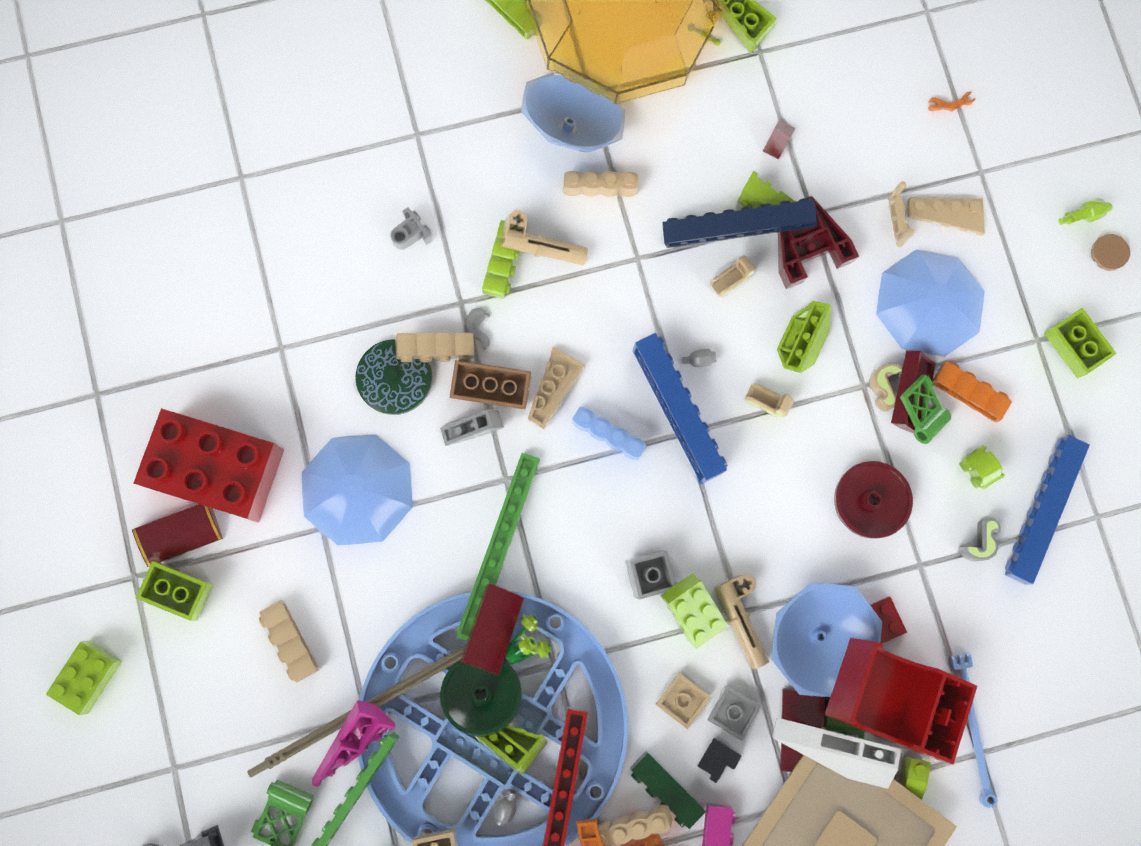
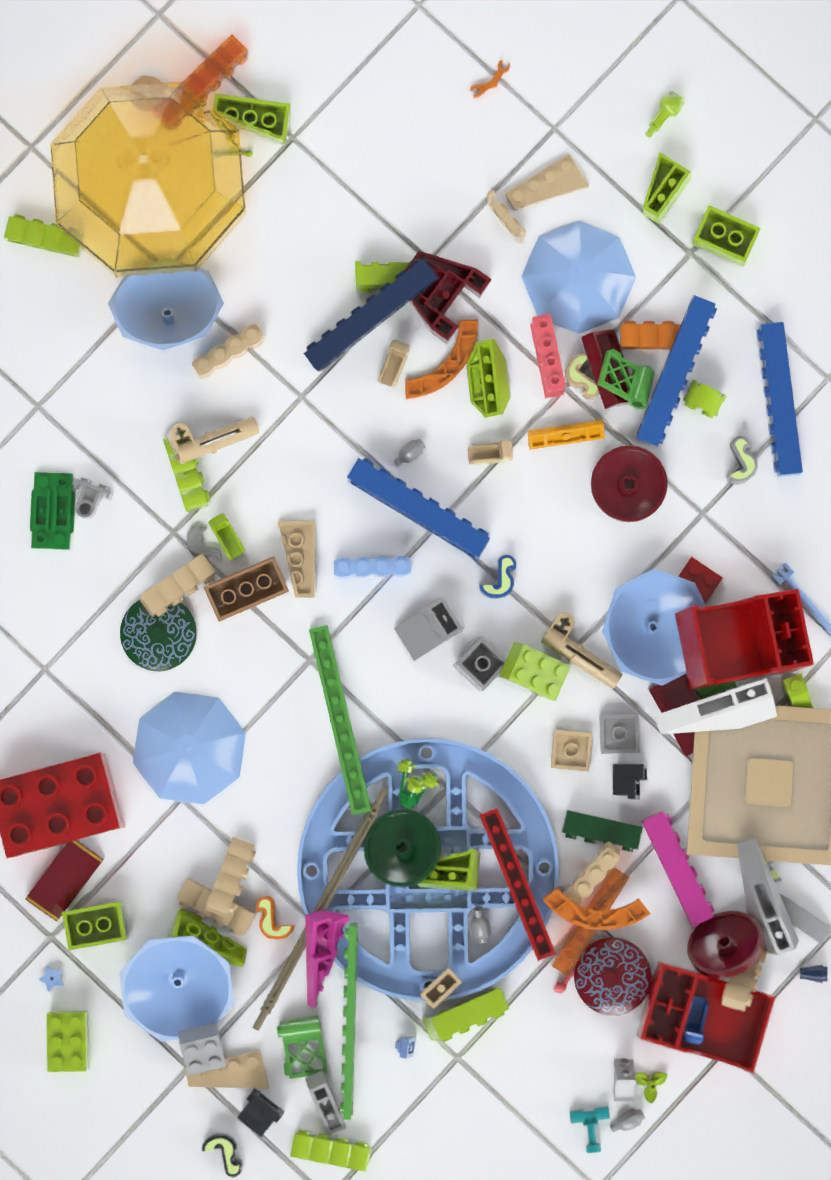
camera: 25 degrees left, 5 degrees up
(115, 612) = (51, 983): none -> light blue plate
(192, 760) = (202, 1048): none -> light grey brick
(204, 692) = (175, 986): none -> light blue piece
(206, 797) = (241, 1071): none -> tan wing
(254, 661) = (191, 925): none -> lime wedge
(315, 623) = (230, 876): none -> tan brick
(324, 683) = (267, 922): none -> animal
(372, 224) = (52, 511): none -> green piece
(472, 426) = (253, 634): light grey slope -> none
(492, 629) = (378, 790): dark red slope -> none
(502, 331) = (226, 536): none -> lime animal
(624, 515) = (428, 628): none -> light grey slope
(716, 514) = (505, 579): none -> animal
(775, 310) = (450, 367): none -> orange tile
(778, 139) = (359, 210): slope -> none
(842, 425) = (565, 434): none -> light orange plate
(868, 348) = (547, 356): none -> coral fence
(973, 427) = (675, 370): none -> blue brick
(1051, 272) = (666, 186): none -> lime wedge
(1110, 252) = (708, 133): medium nougat tile -> none

